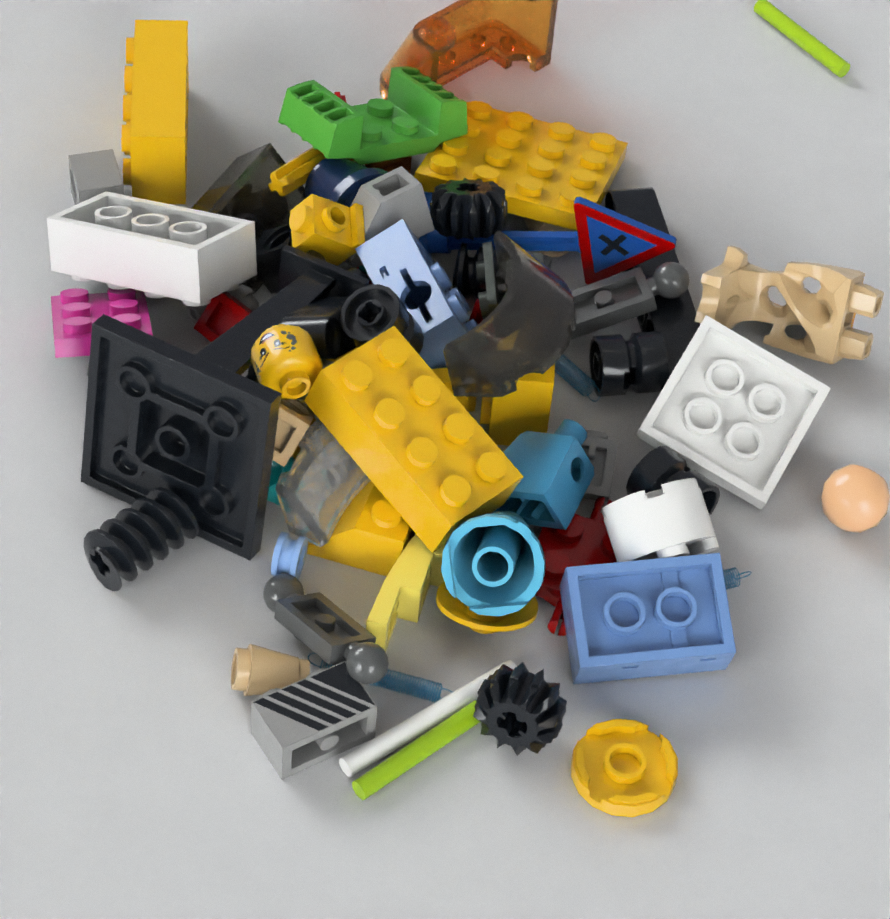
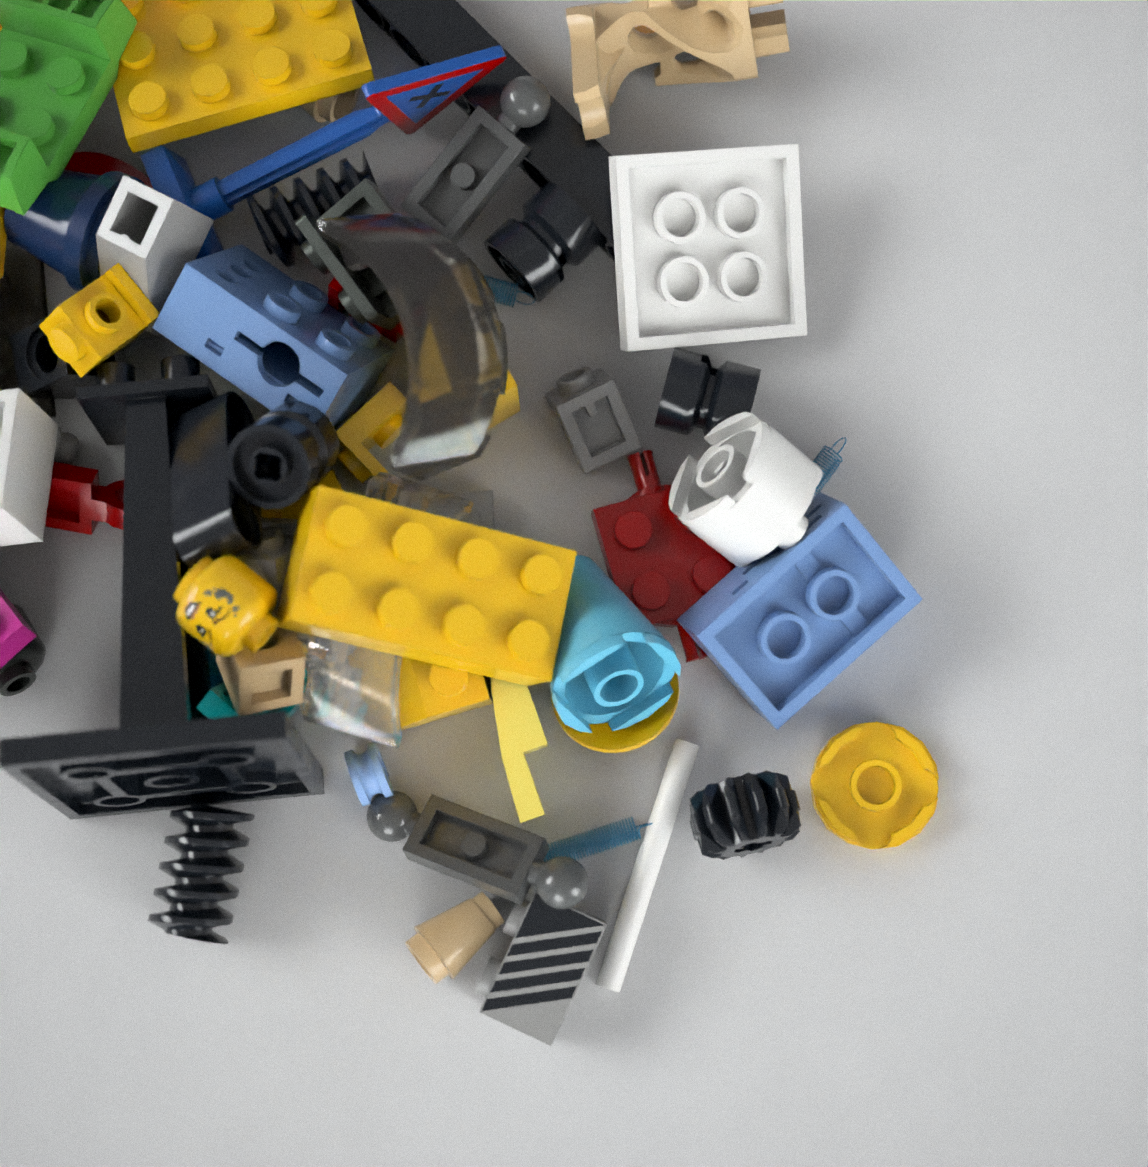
camera: 30 degrees left, 35 degrees up
(415, 752) = (663, 914): lime bar -> none
(468, 209) = (230, 158): black gear -> none
(553, 473) = (570, 490): dark azure torso -> none
(855, 498) = (900, 268): light nougat piece -> none

